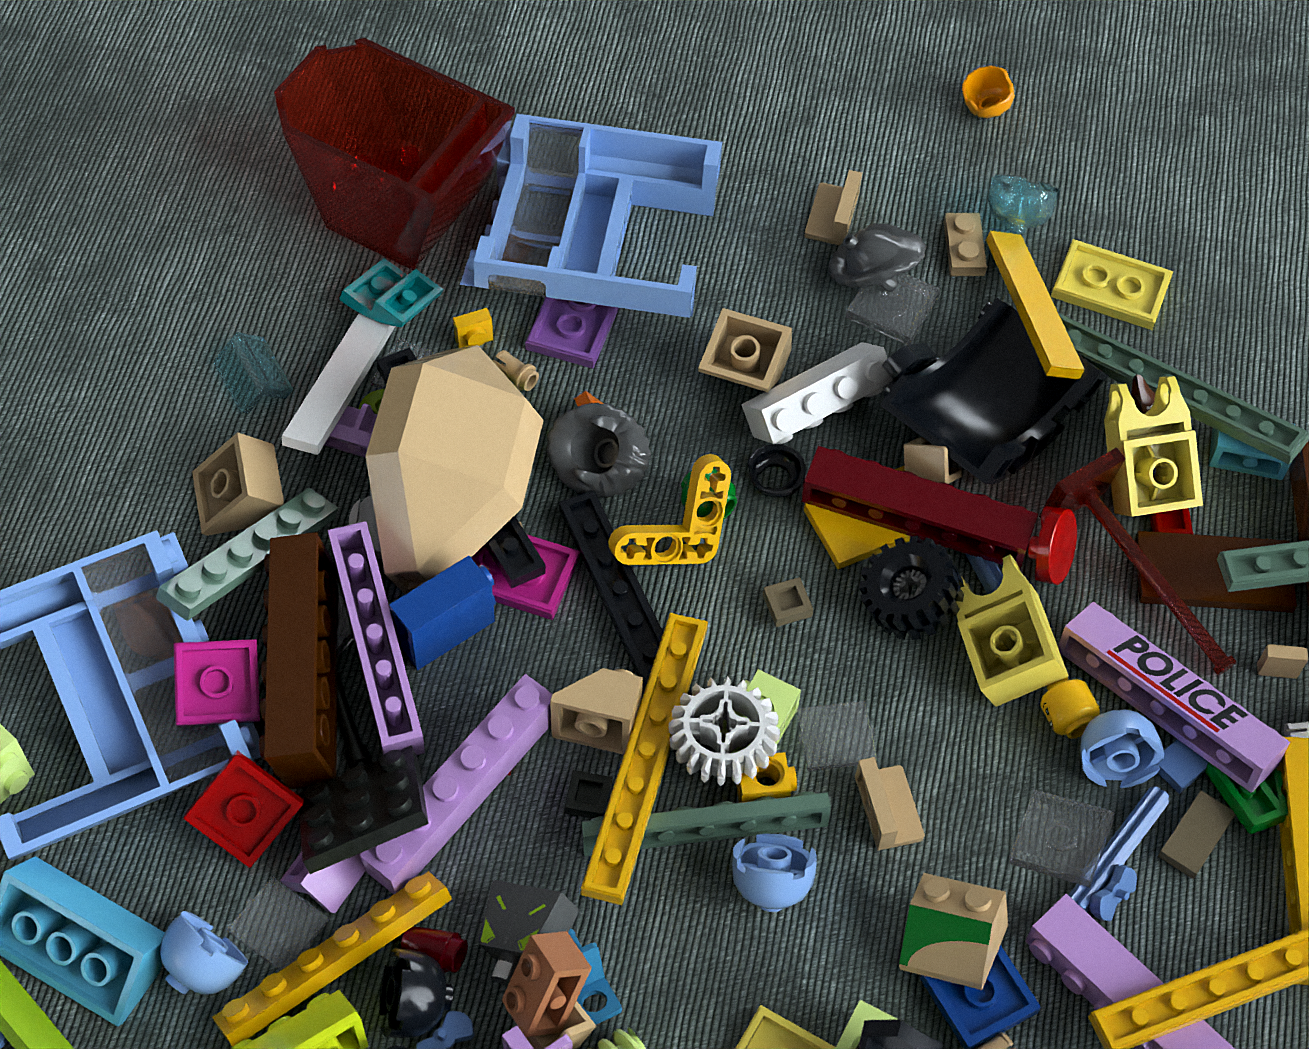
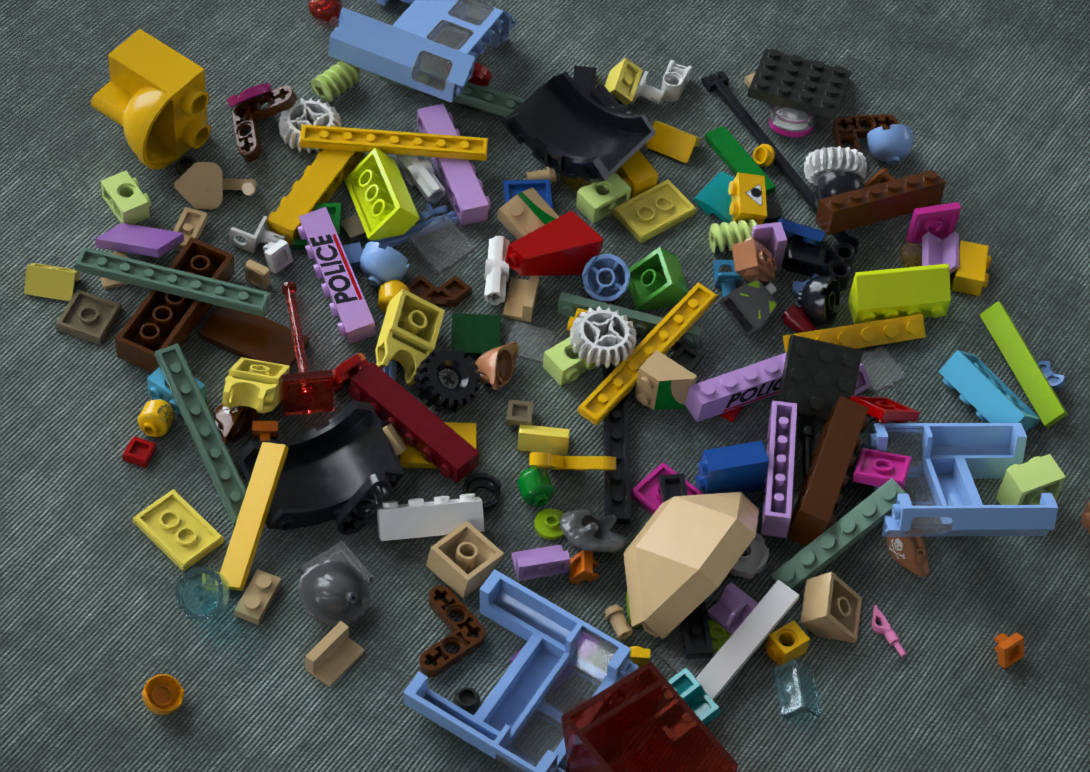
camera: 160 degrees left, 5 degrees down
(155, 499) = (887, 631): none -> bright pink hand
(199, 957) = (923, 356): light blue cylinder -> none
(269, 418) = (791, 635): none -> yellow brick
(654, 217) = (467, 699): none -> pearl dark grey plate
(656, 404) = (540, 562): none -> lavender panel
(665, 473) = (548, 524): none -> lime piece
(693, 919) = (657, 281): none -> bright green slope
(705, 282) = (458, 636): none -> reddish brown beam
(733, 576) = (543, 439): none -> light yellow panel
(858, 652) = (497, 365): none -> nougat hat
(872, 871) = (555, 248): none -> red slope
(919, 708) = (475, 333): none -> dark green tile
(952, 827) = (496, 271): none -> white piece
(1027, 749) = (447, 295): none -> reddish brown tile
(1093, 435) = (265, 429): none -> orange tile
(1164, 954) = (421, 173): none -> white piece
(1202, 873) = (381, 197): none -> neon yellow slope
(1231, 358) = (139, 452): none -> red tile
(1247, 385) = (156, 418): none -> yellow head
(1280, 704) = (277, 255): none -> white tile

